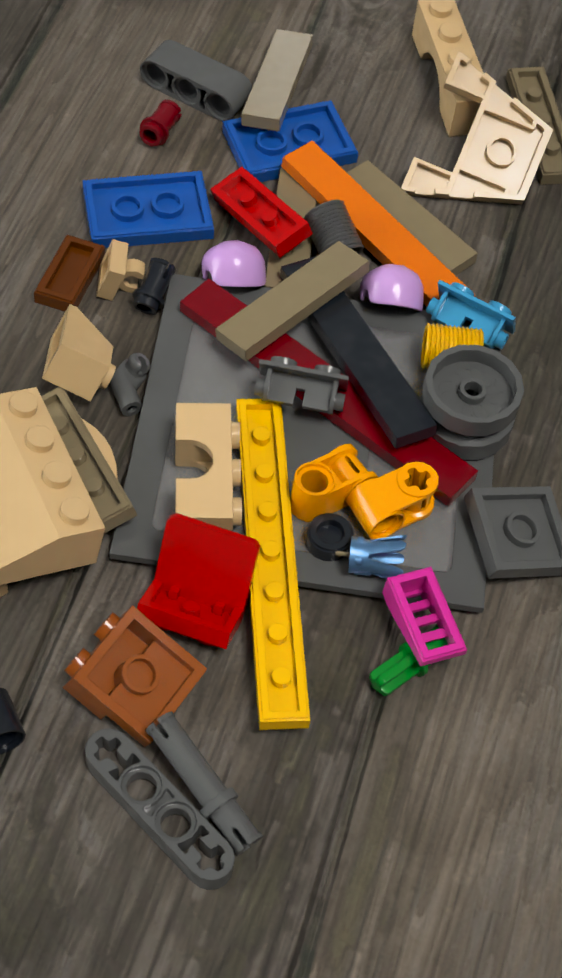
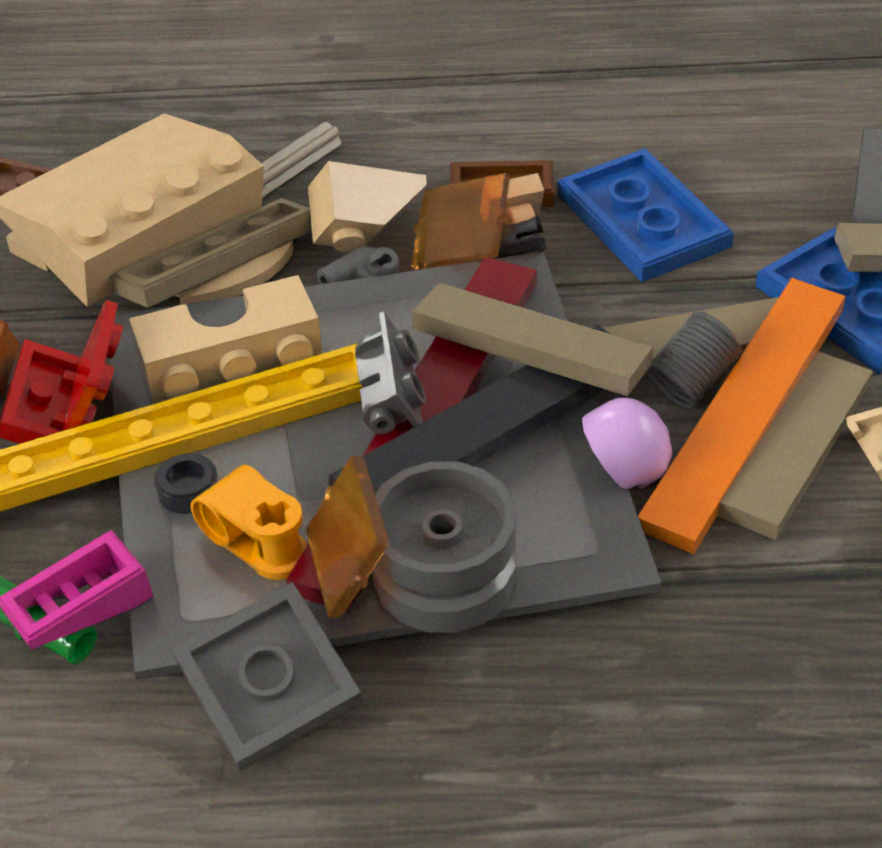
camera: 80 degrees right, 10 degrees down
(129, 303) = (461, 222): none -> clear orange piece
(156, 129) = (786, 178): dark red pin -> none
(234, 265) = (578, 290): lavender hair -> none
(261, 211) = (683, 289): red plate -> none
(326, 482) = (249, 436): light orange piece -> none
(375, 556) = (159, 512): flat silver piece -> none
(441, 337) = (548, 517): yellow piece -> none
(459, 304) = (637, 511): dark azure hinge -> none
(461, 440) = (346, 536): none -> clear orange piece

